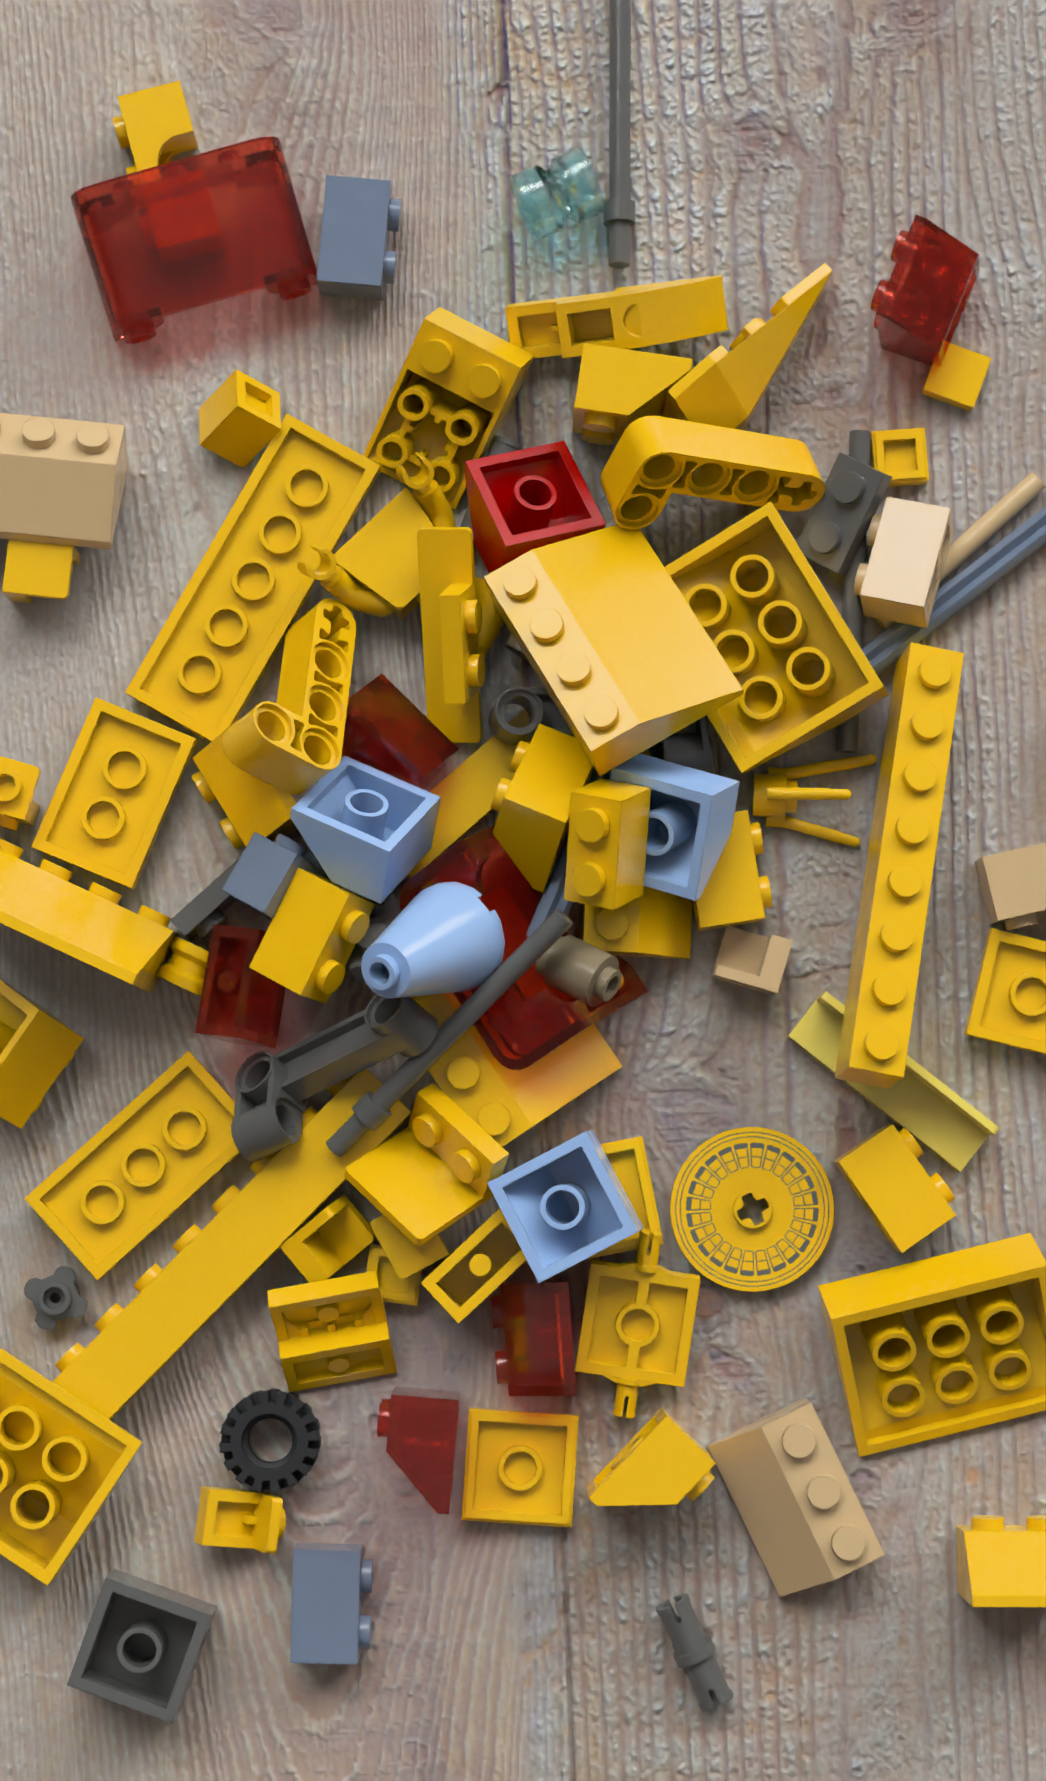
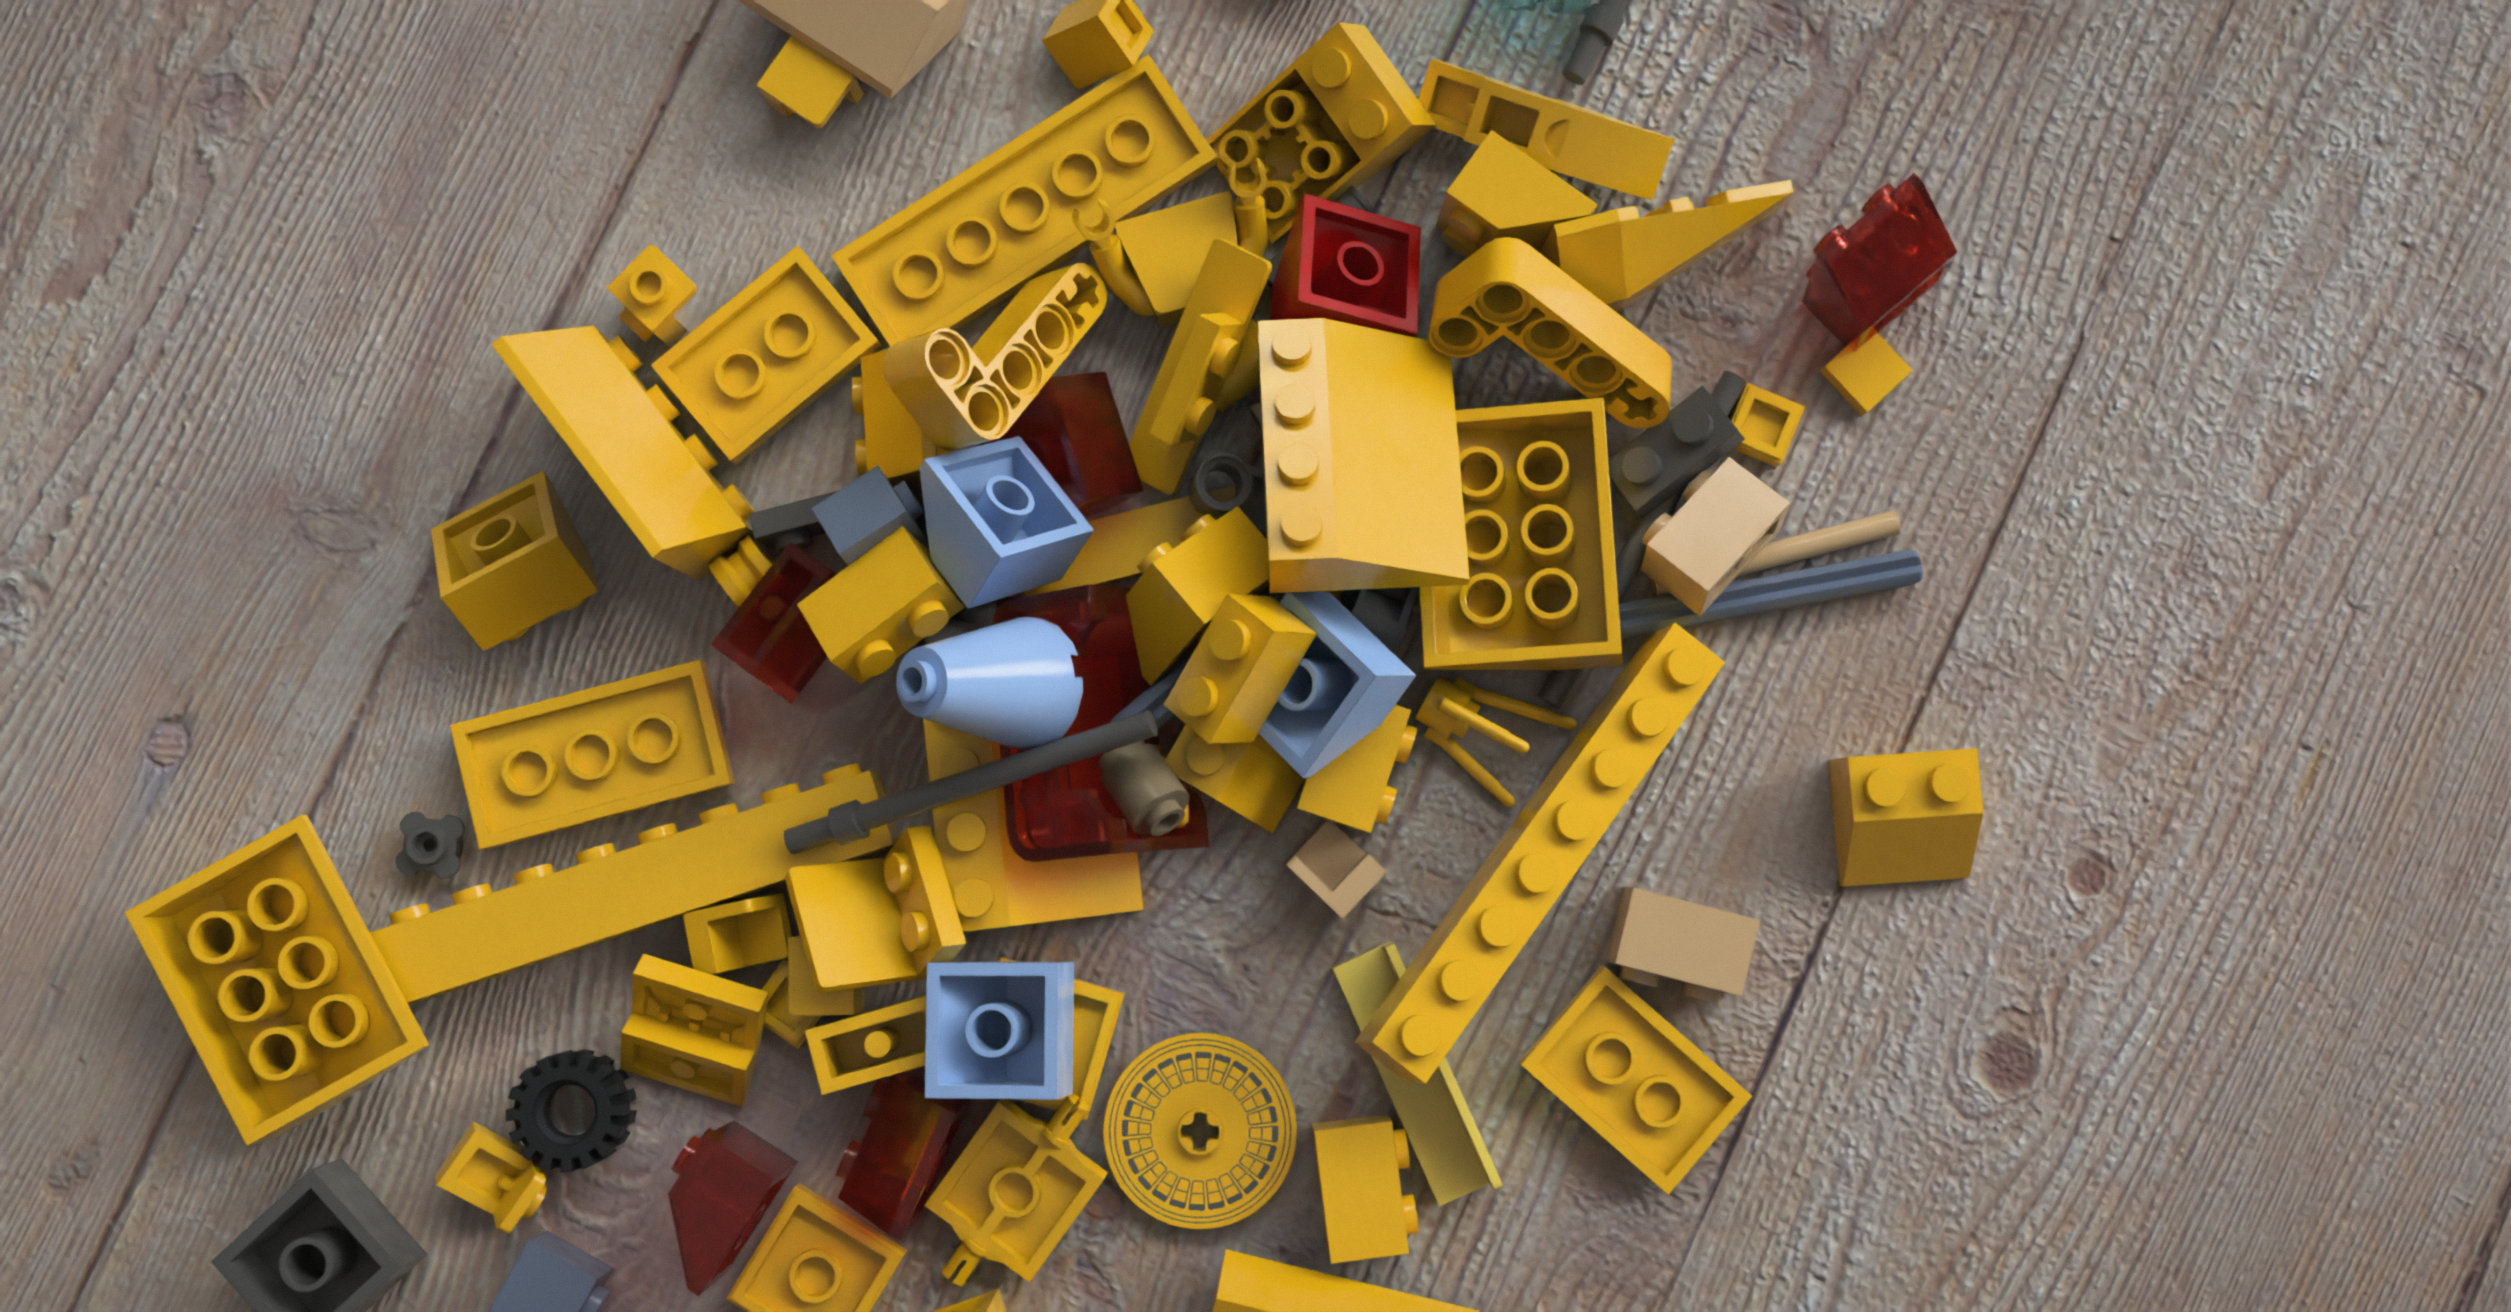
camera: 25 degrees right, 0 degrees up
(275, 1087) = (769, 744): dark grey piece -> none

